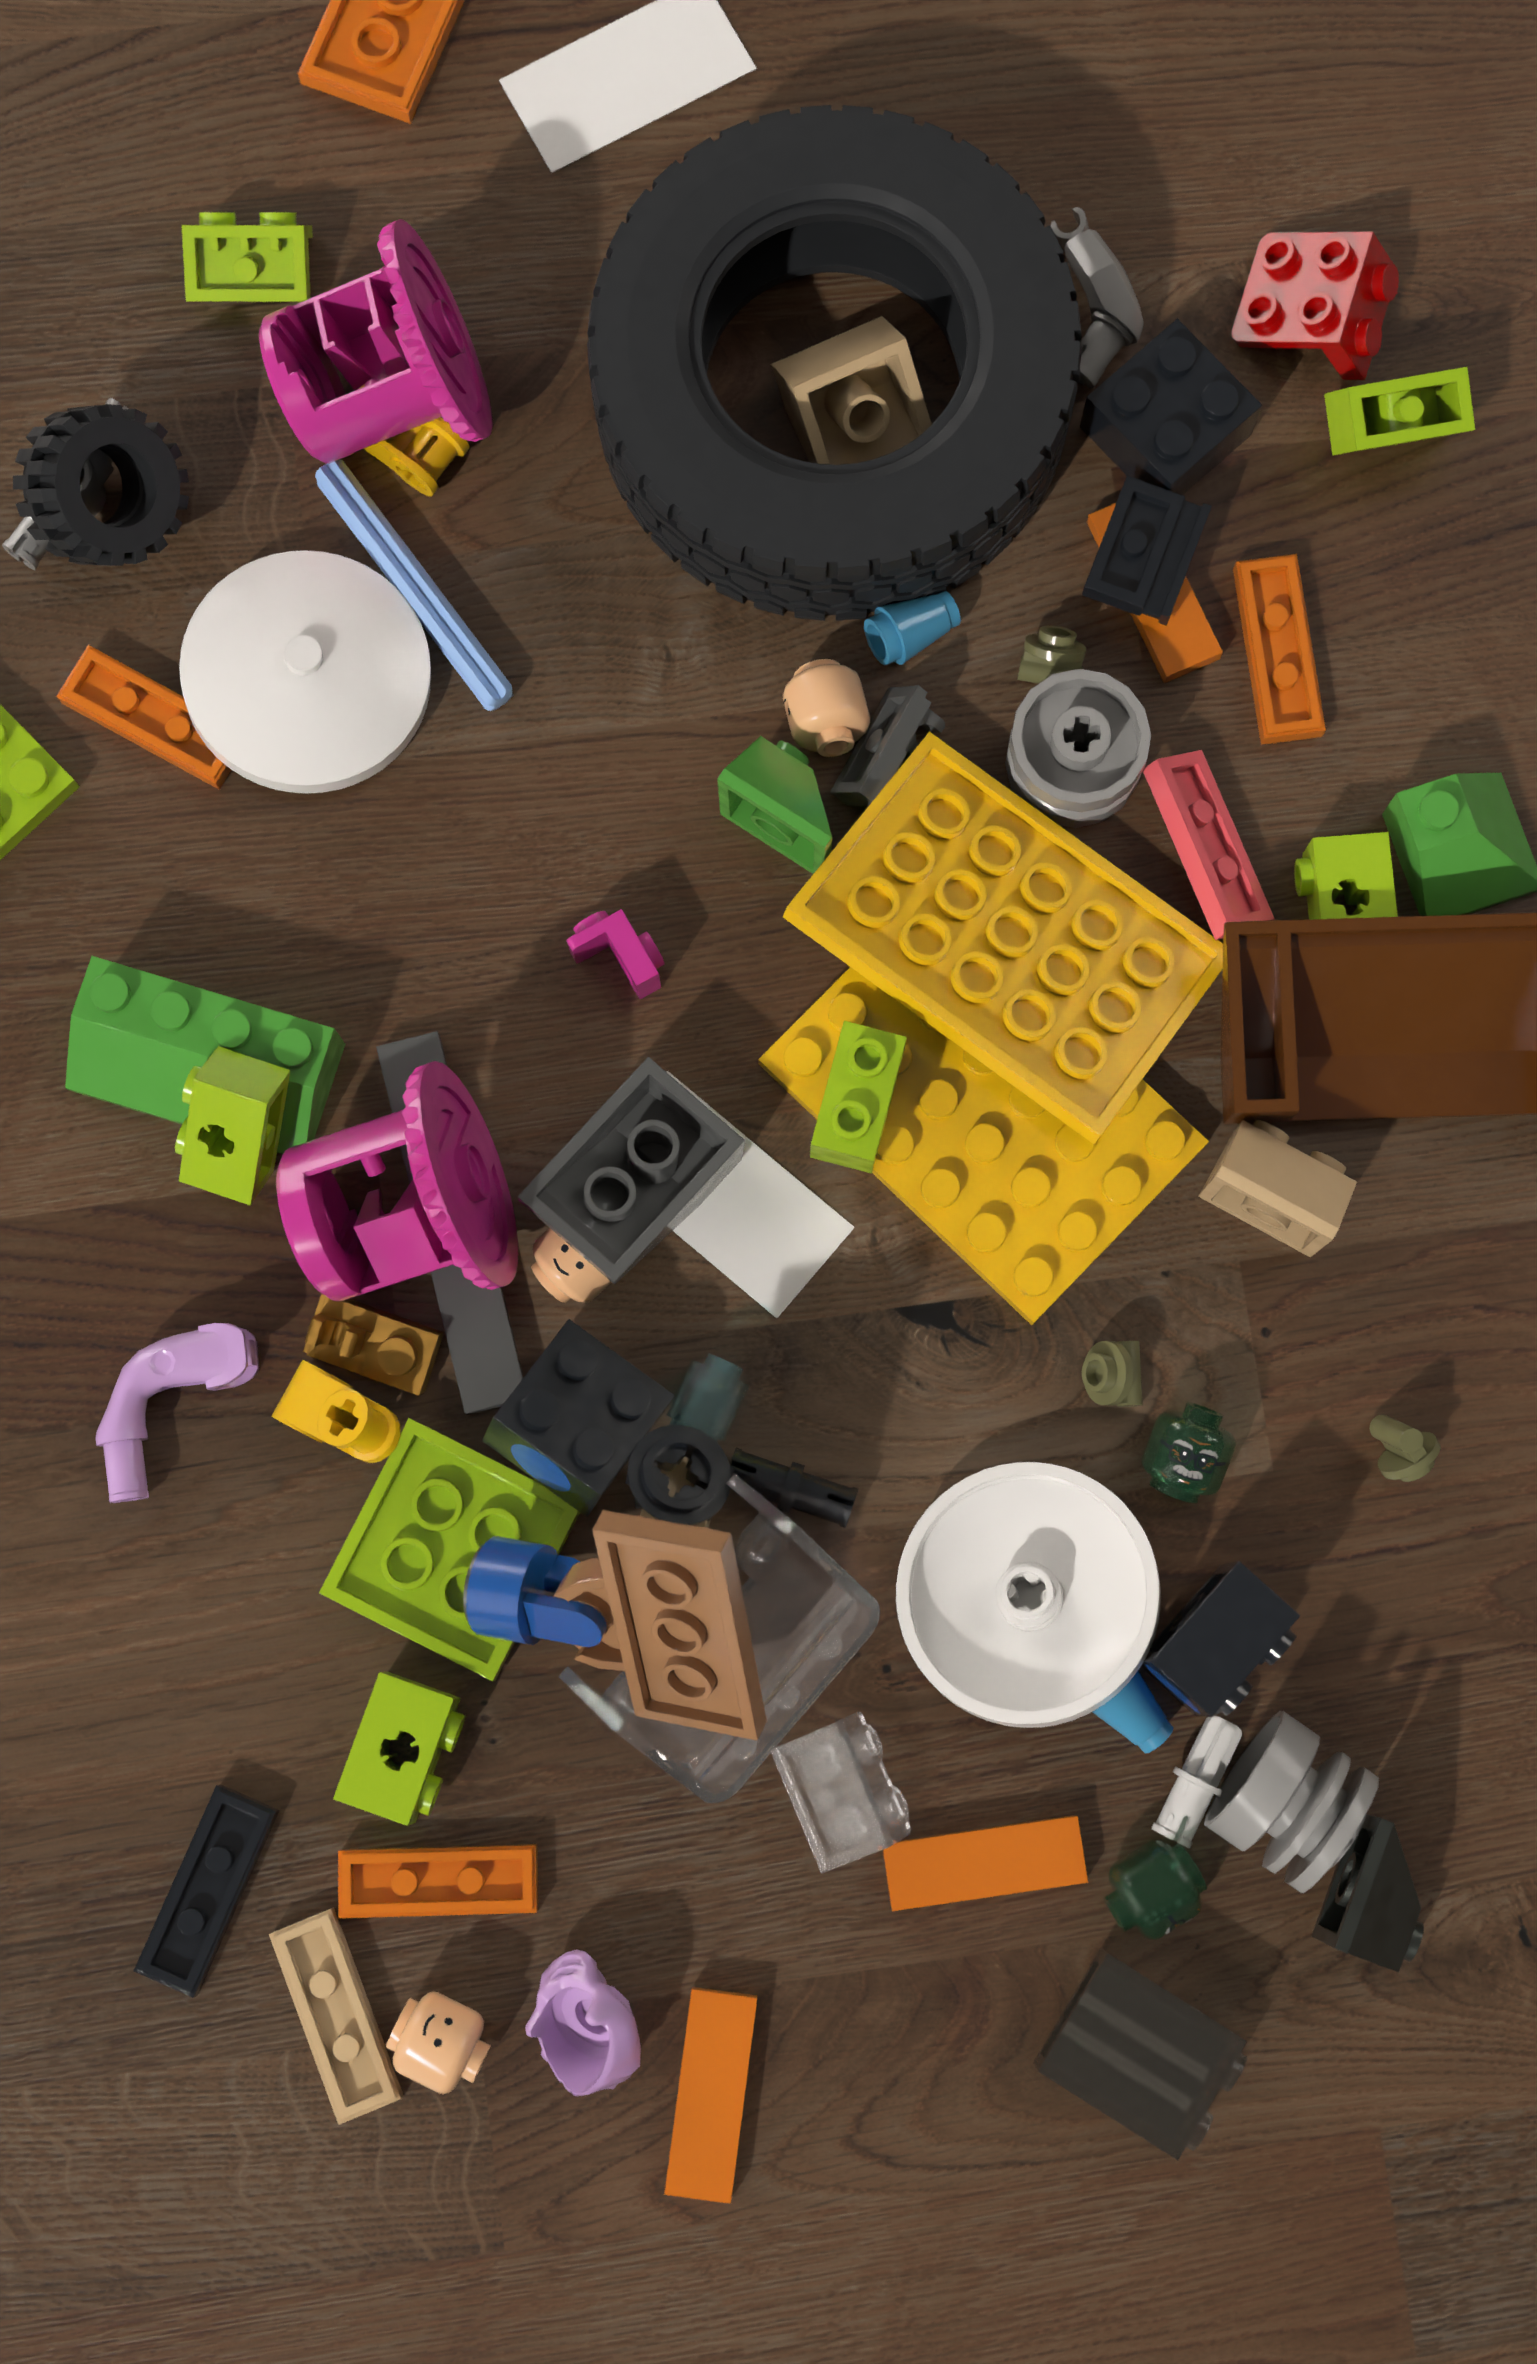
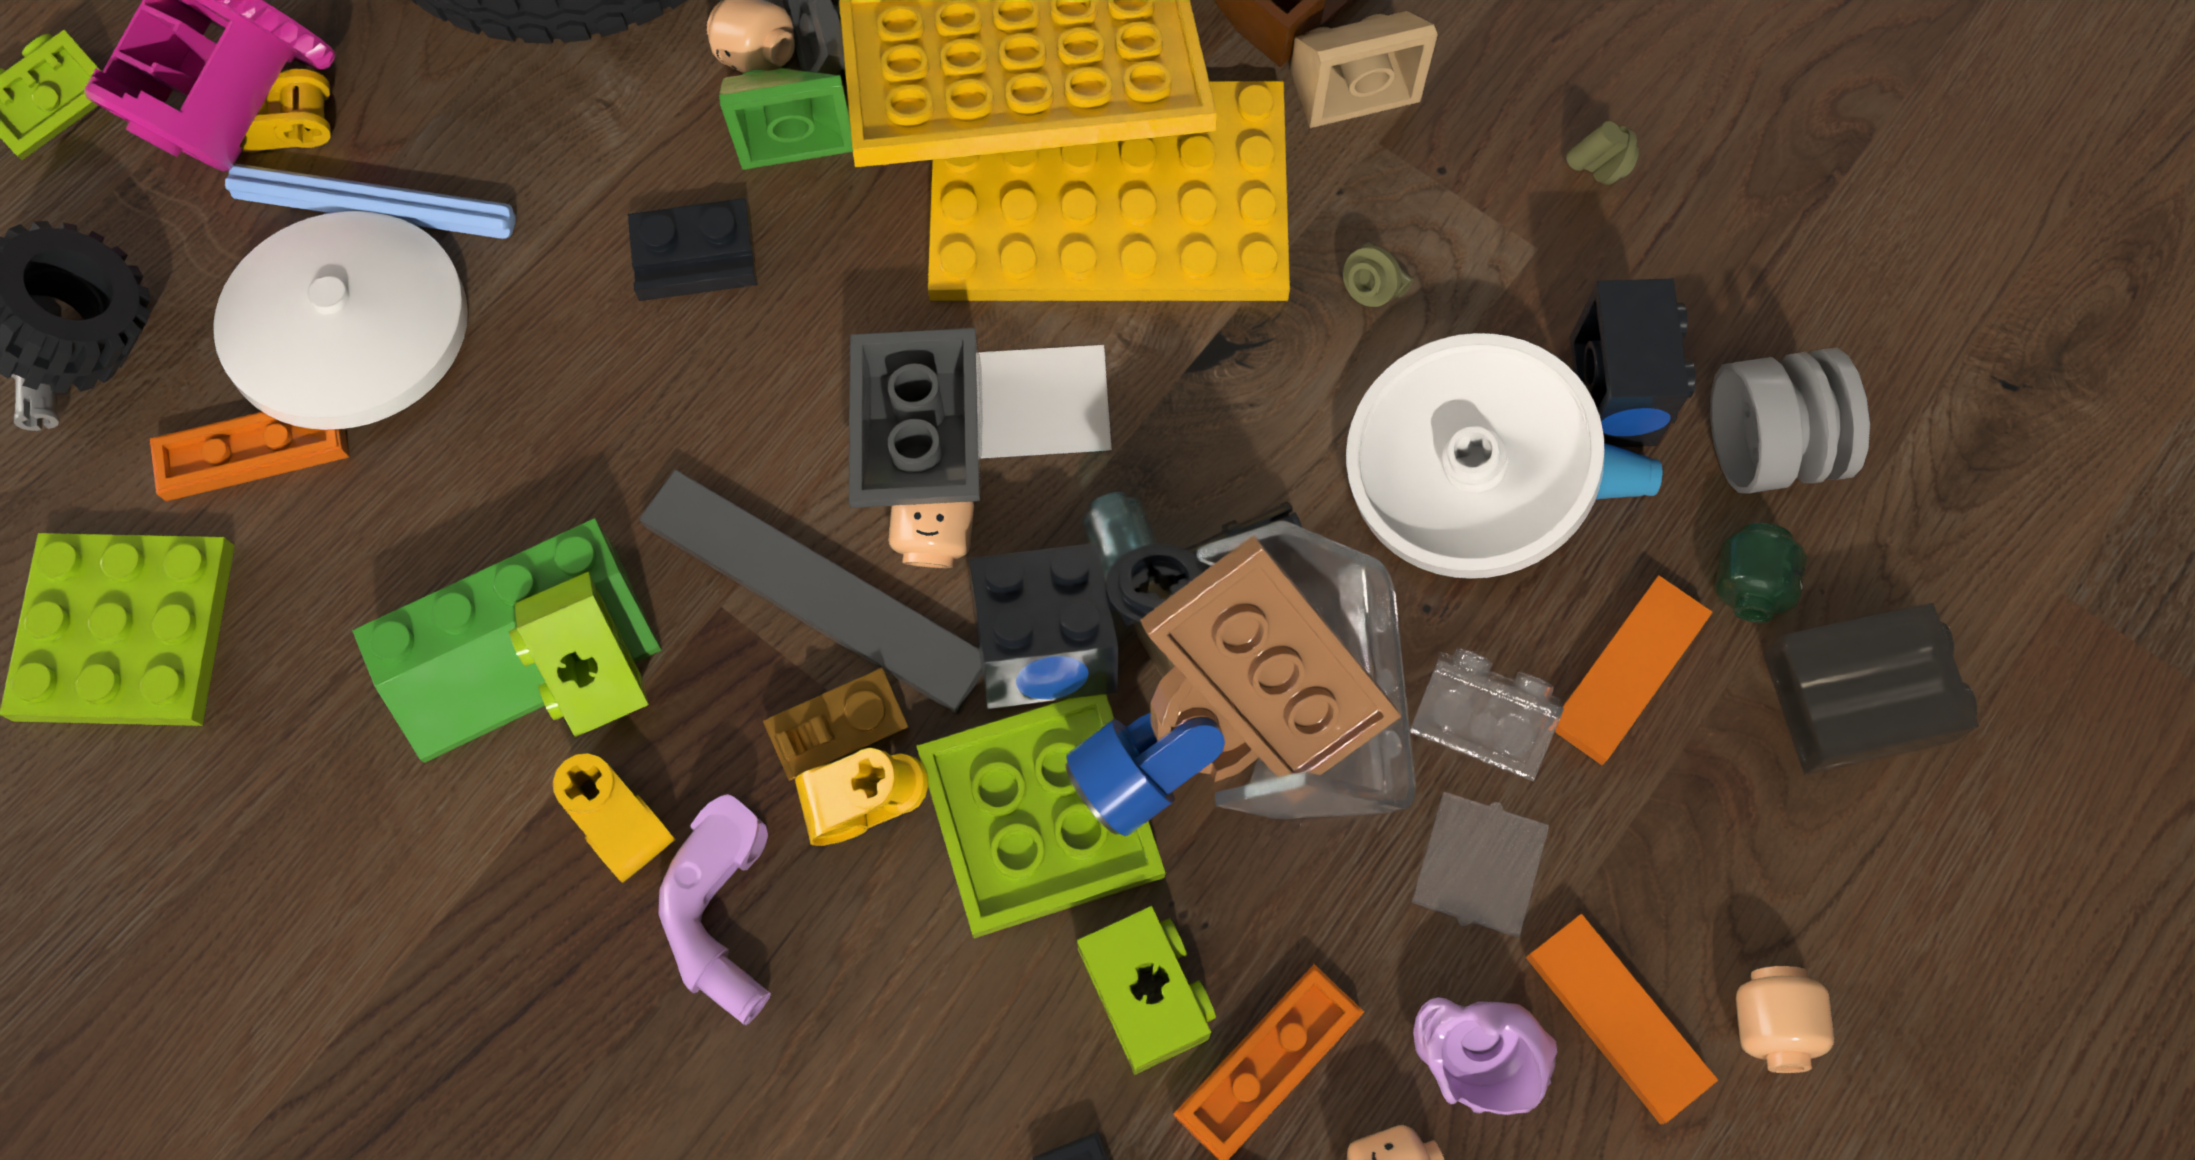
camera: 45 degrees left, 10 degrees down
(153, 1276) = (615, 821): none -> yellow piece
(447, 1216) = (789, 608): dark pink piece -> none
(617, 852) = (692, 249): none -> black plate
(634, 953) = (761, 296): dark pink bracket -> none
(728, 1891) = (1480, 864): none -> clear piece
(820, 2211) = (1784, 1018): none -> light nougat head
(857, 1097) = (1026, 236): lime brick -> none
(1188, 1453) = (1478, 275): clear green head -> none
(1198, 1780) = (1709, 477): white axle -> none
(1372, 1900) = (1910, 439): pearl dark grey slope -> none

